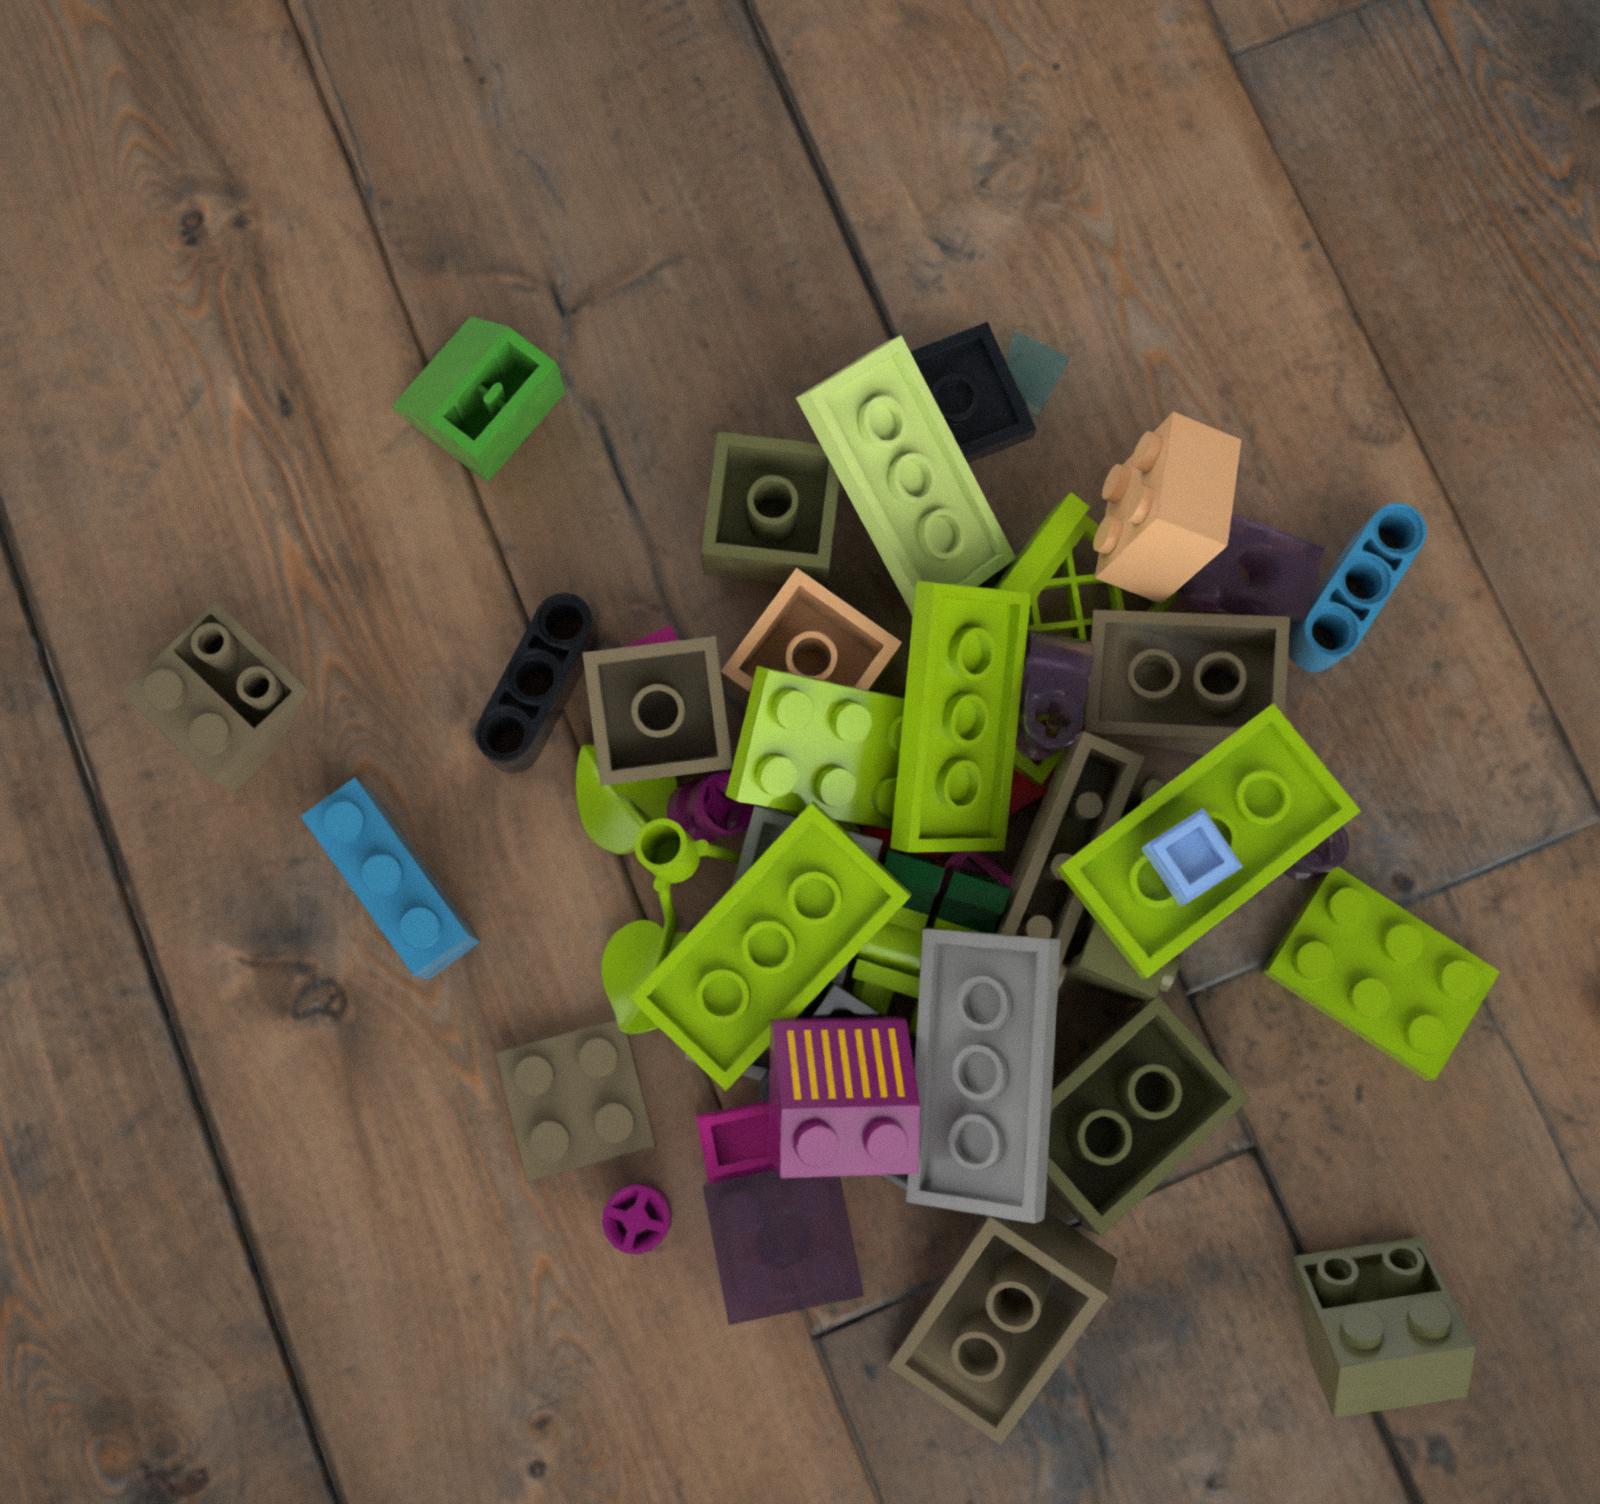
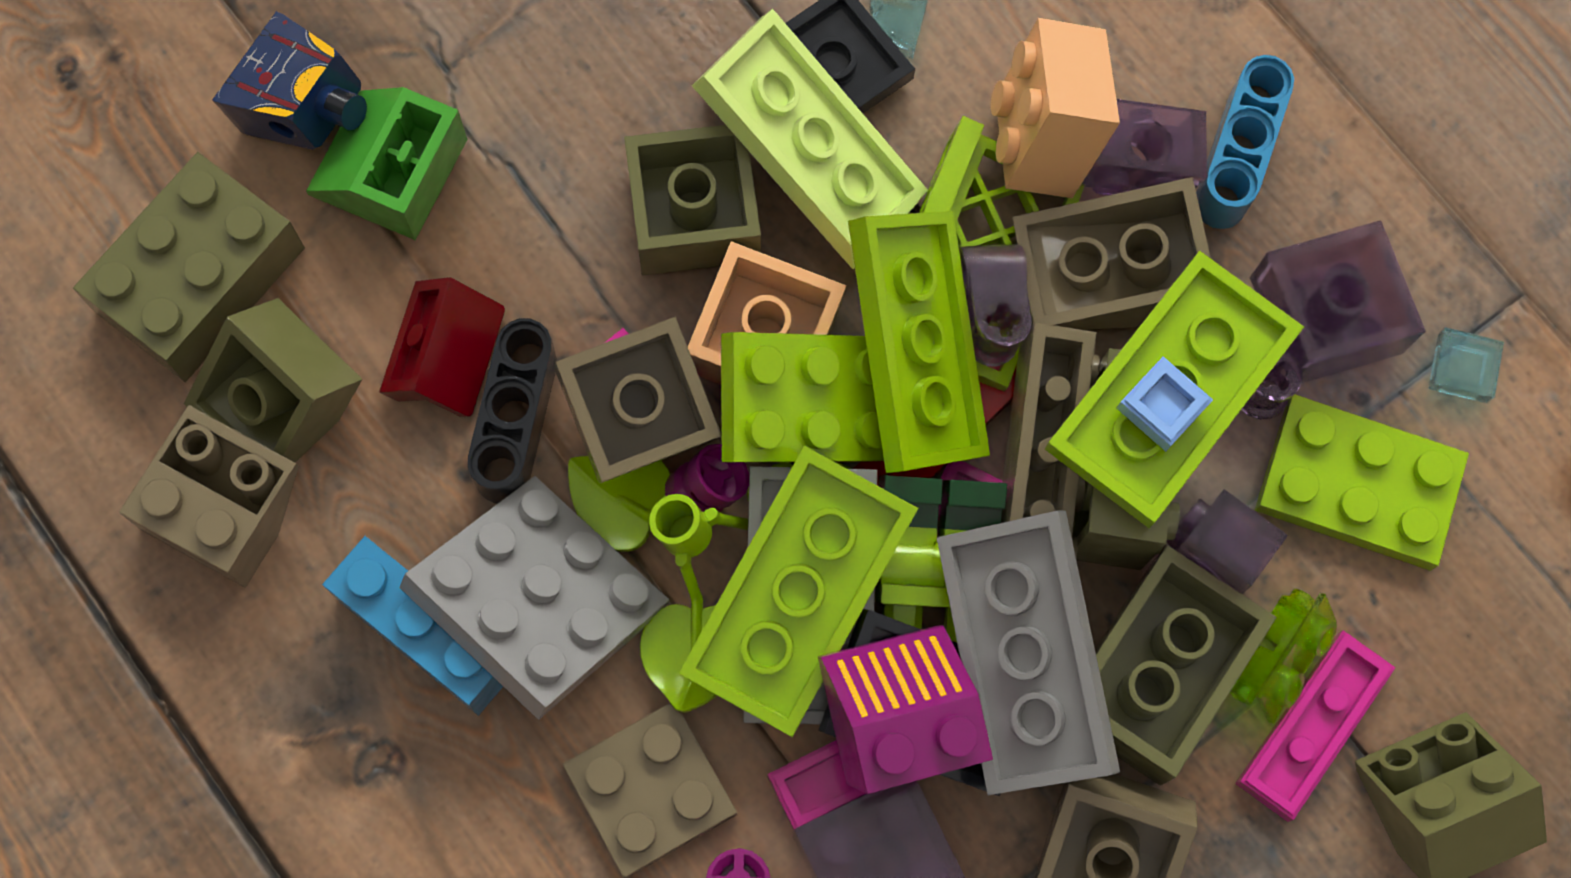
camera: 15 degrees left, 5 degrees down
(256, 457) = (189, 264): none -> olive brick
(308, 595) = (273, 380): none -> olive slope
(401, 298) = (291, 88): none -> dark blue torso
(487, 599) = (443, 346): none -> dark red panel
(508, 879) = (534, 596): none -> light grey plate
(1221, 1007) = (1227, 540): none -> clear purple brick
(1262, 1210) = (1315, 726): none -> dark pink tile
(1272, 1116) = (1301, 632): none -> clear neon green hinge
(1411, 779) = (1346, 298): none -> brick
(1523, 878) = (1466, 365): none -> clear light blue tile

